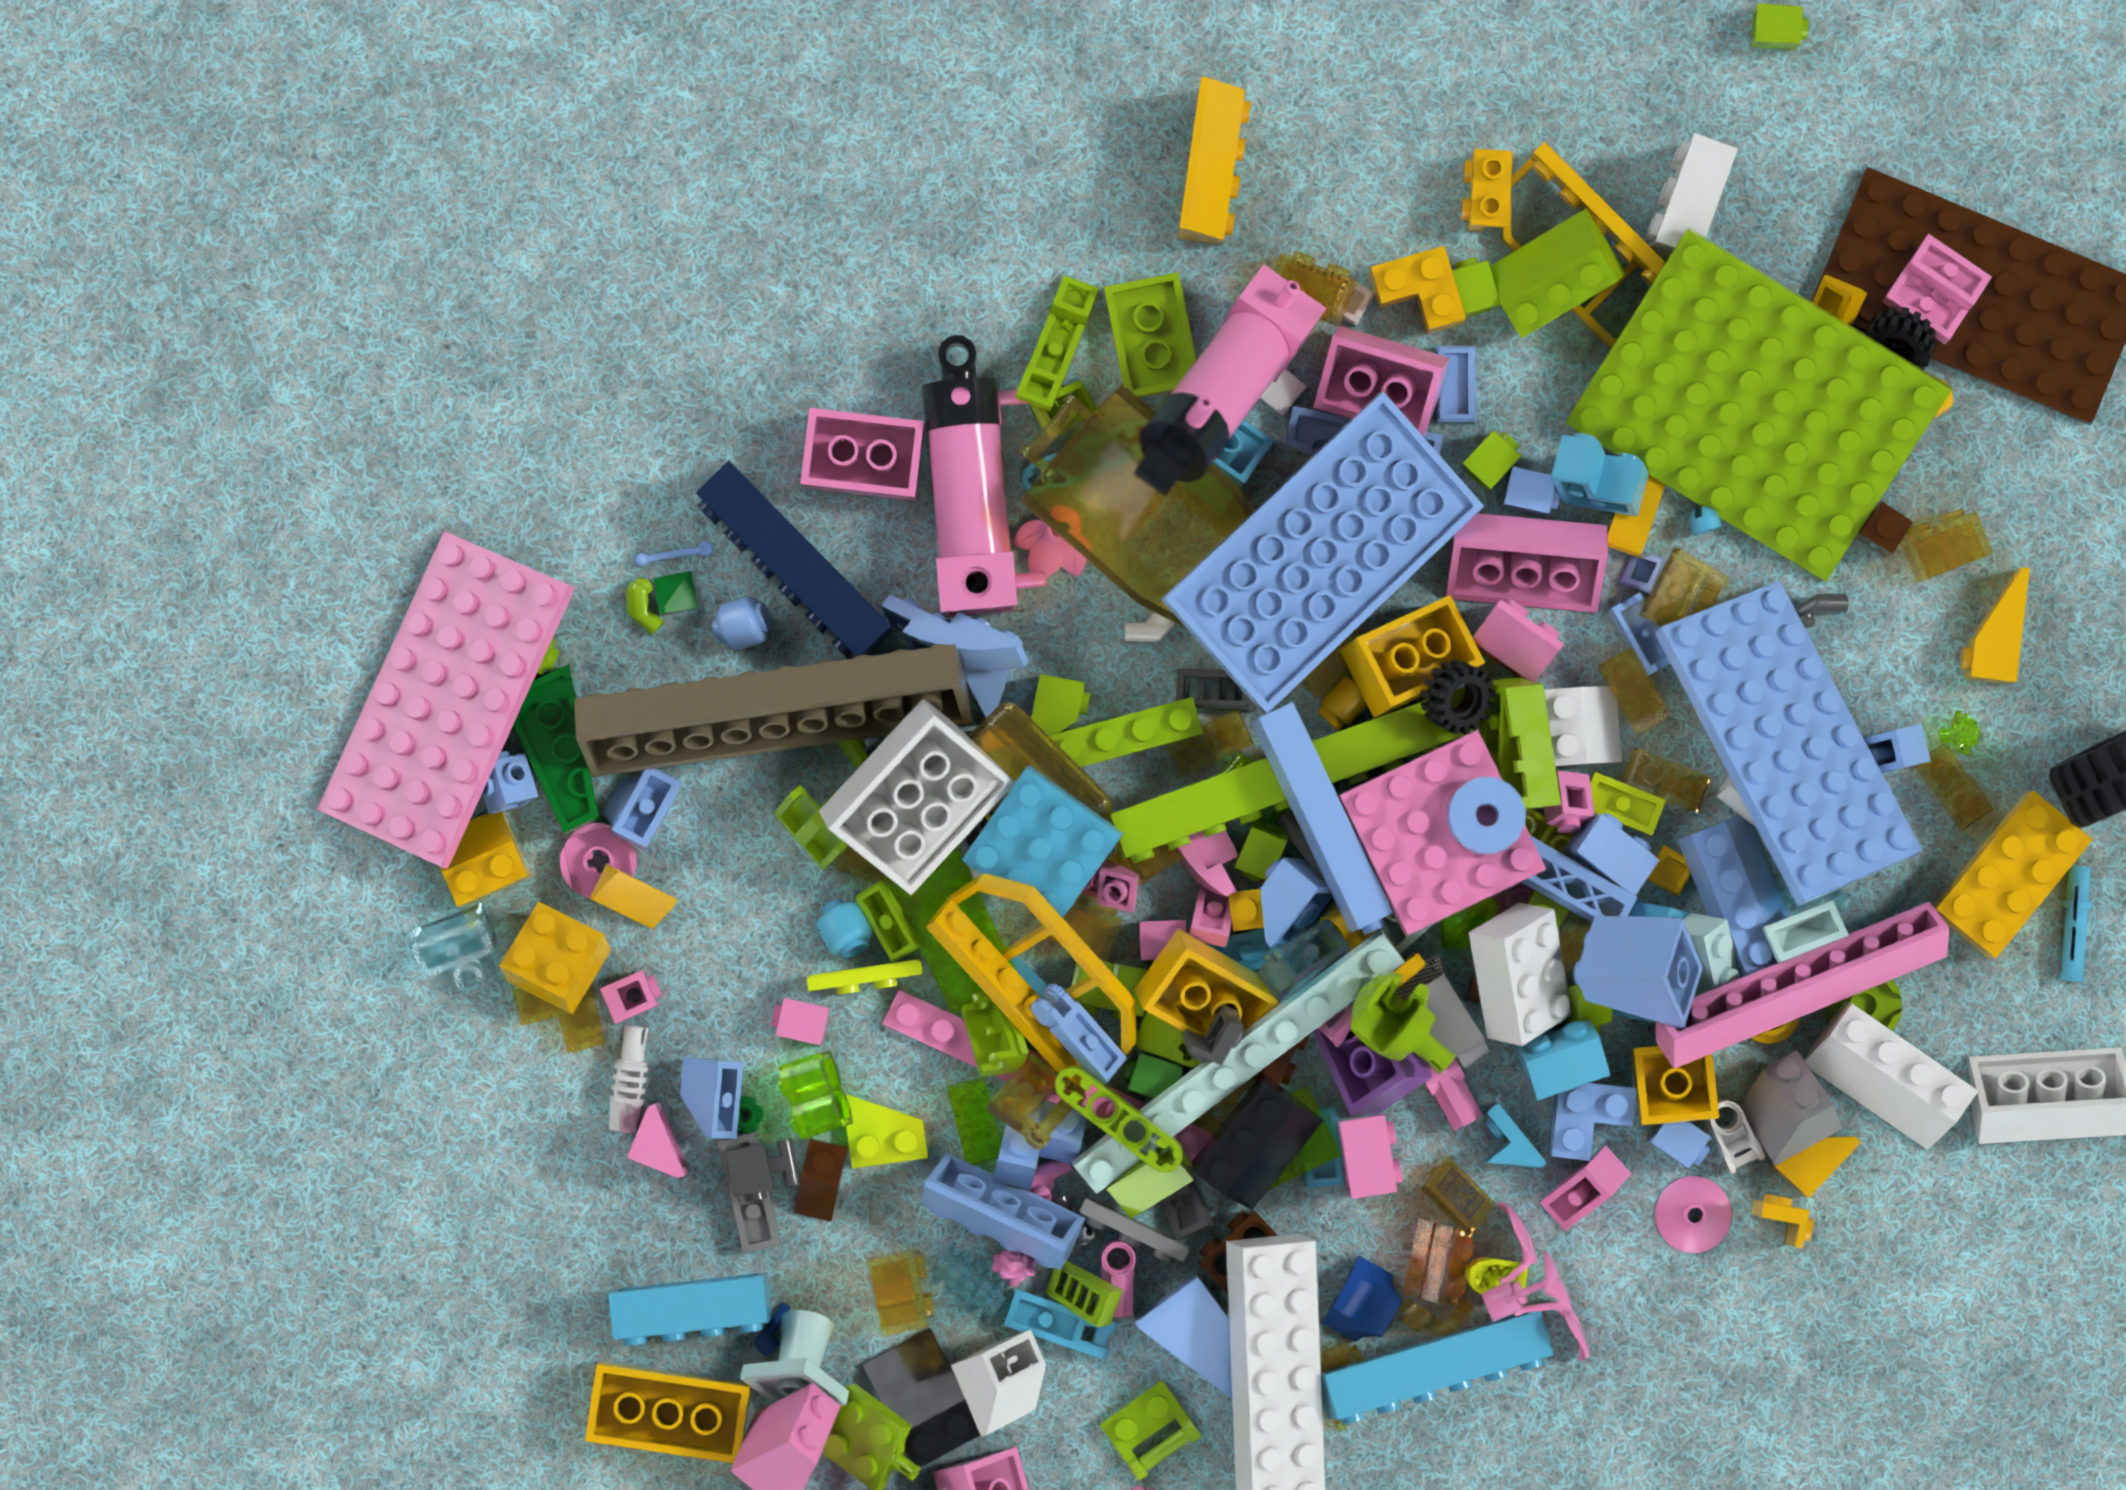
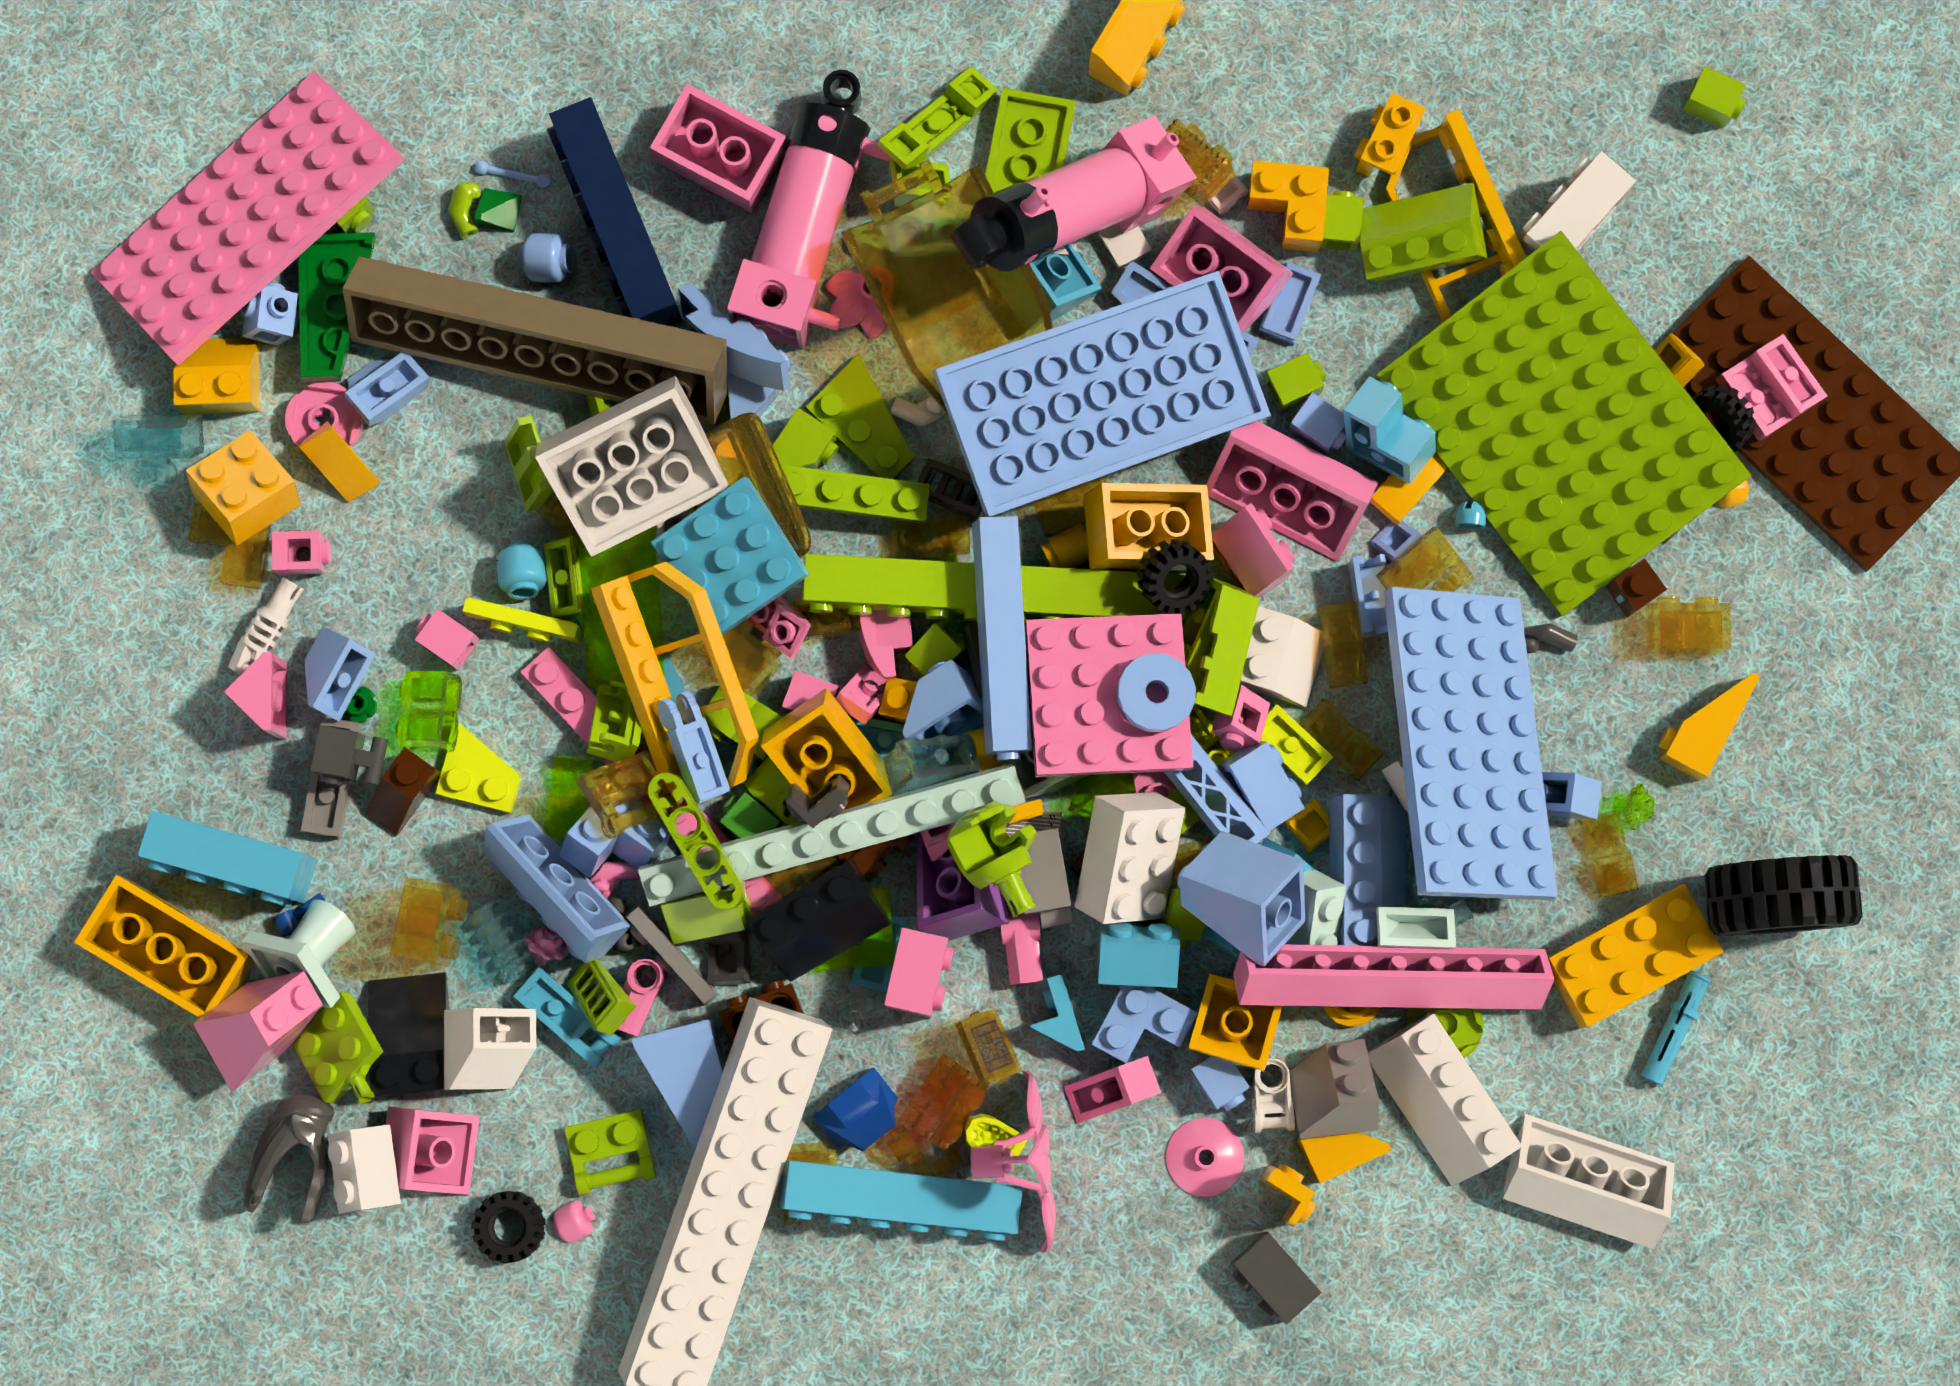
camera: 25 degrees right, 5 degrees down
(1099, 657) = (862, 420): none -> lime wing
(1801, 1299) = (1274, 1278): none -> dark grey brick

